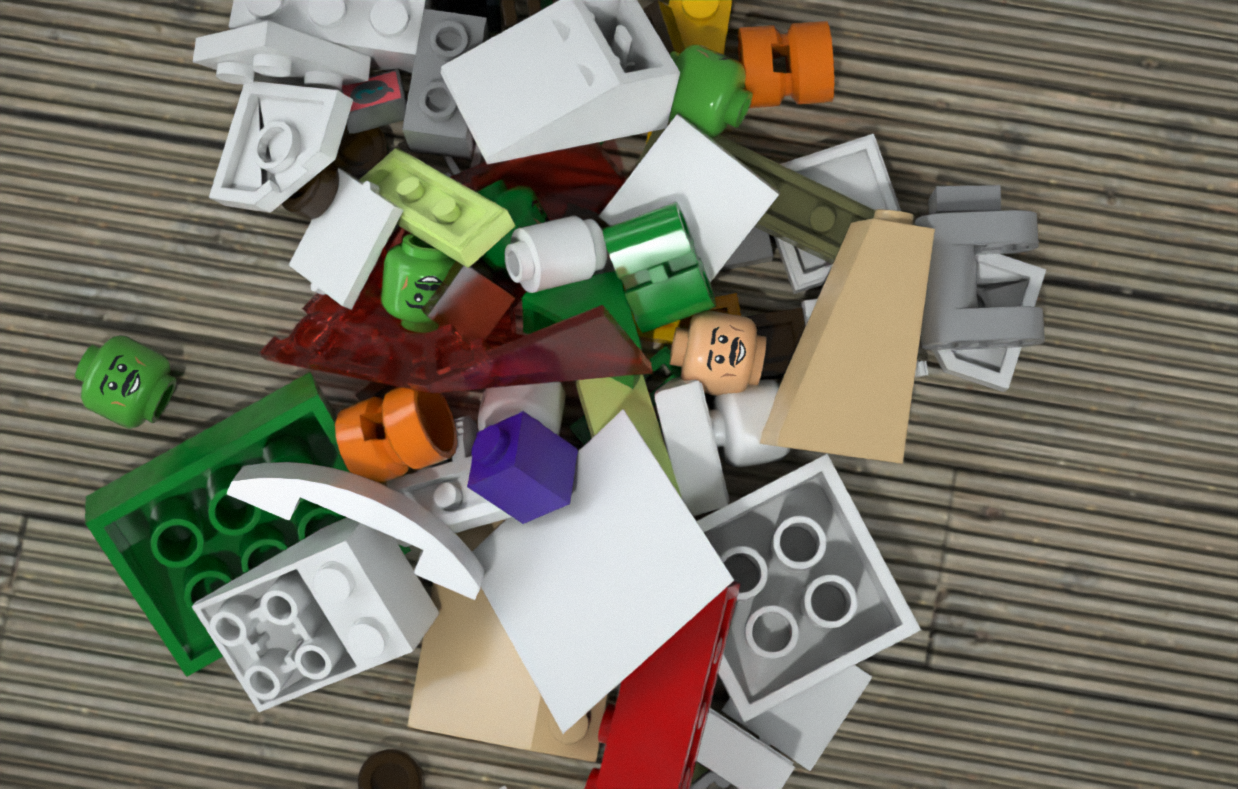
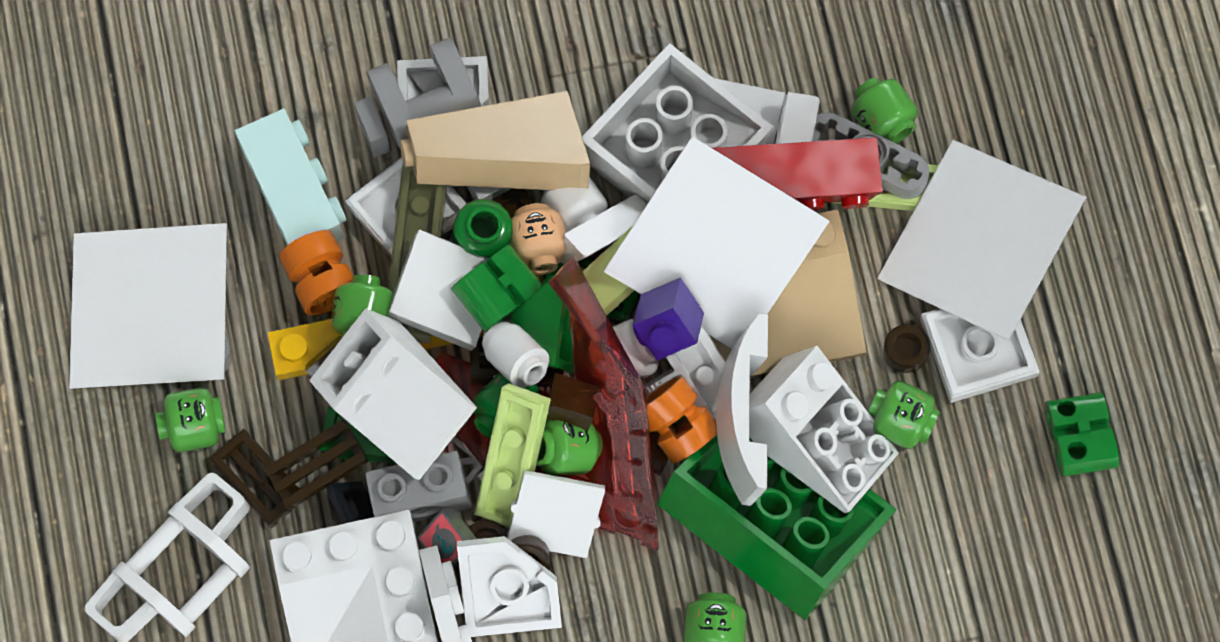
camera: 115 degrees left, 10 degrees down
(297, 736) = (903, 414): none -> bright green head
(756, 284) = (482, 228): none -> green head
(927, 74) = (288, 177): none -> light aqua brick

